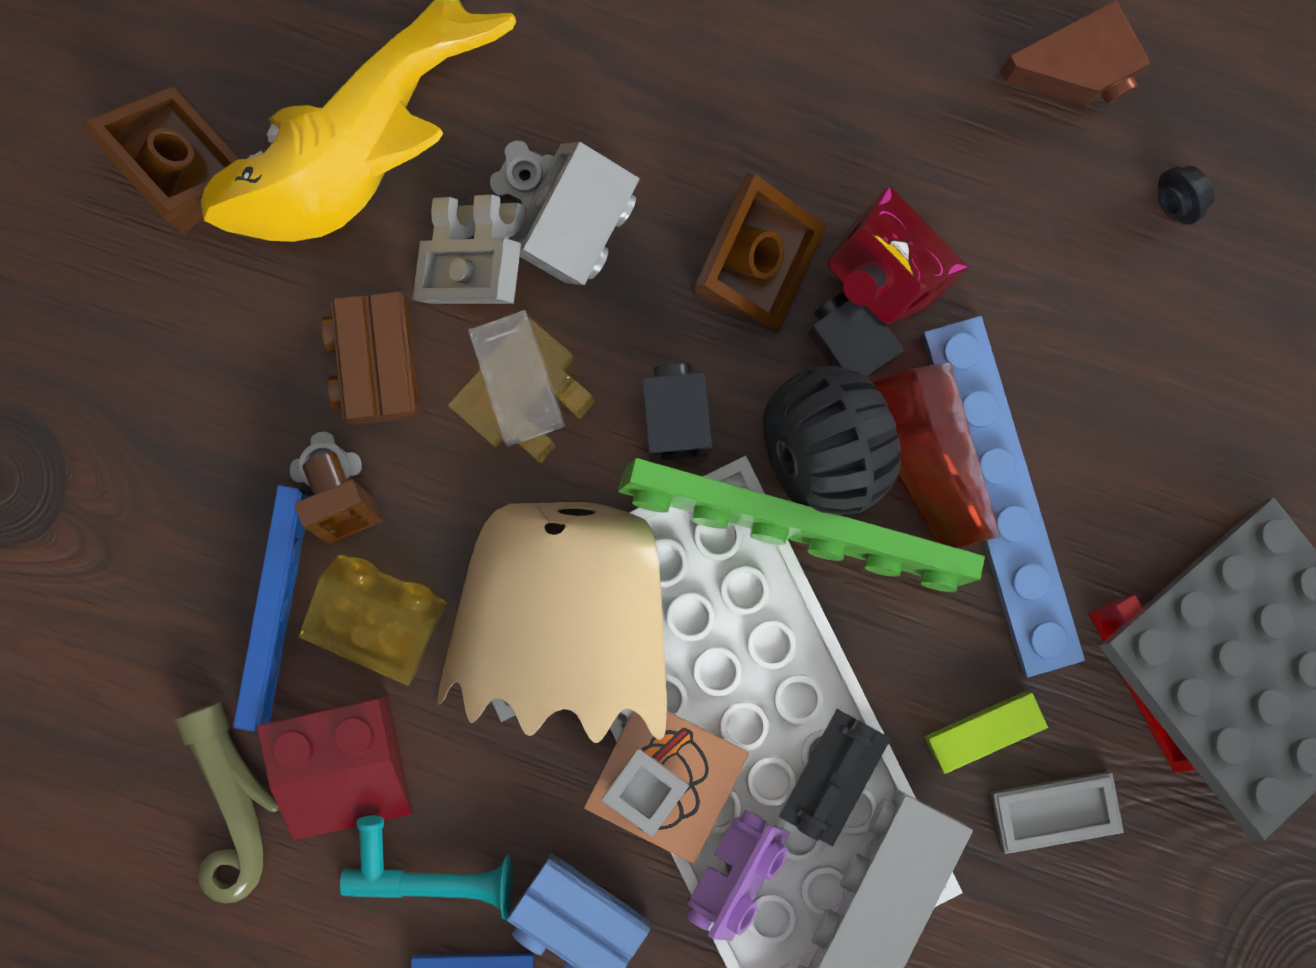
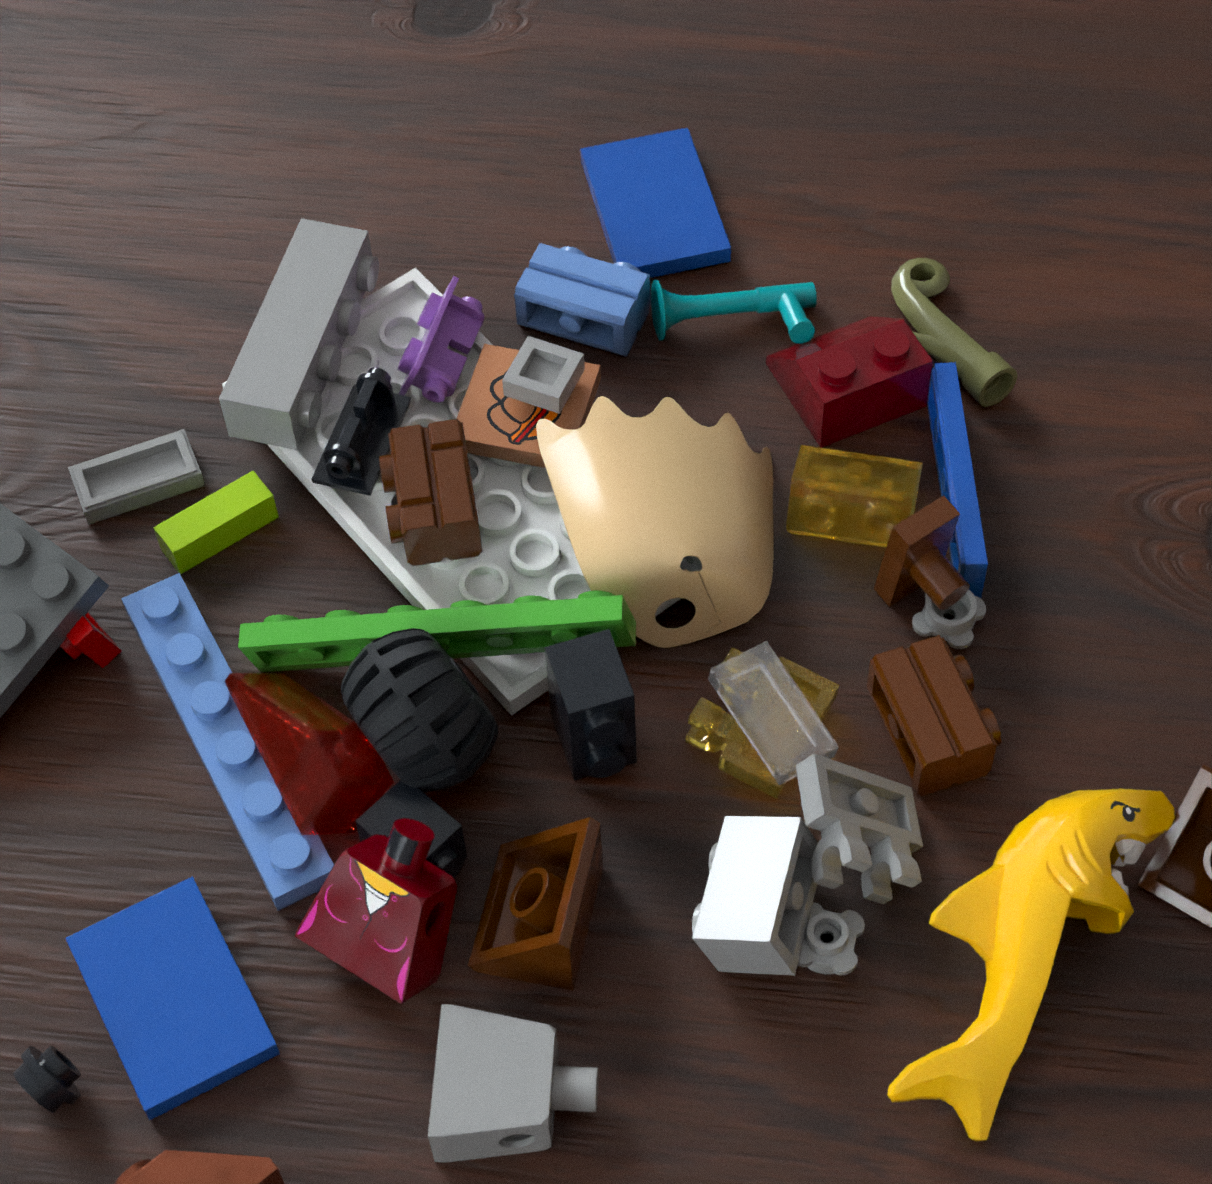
camera: 175 degrees right, 30 degrees down
(779, 686) = (433, 493): none -> reddish brown brick
(820, 102) = (500, 1086): none -> light grey torso
(1076, 253) = (172, 997): none -> blue tile

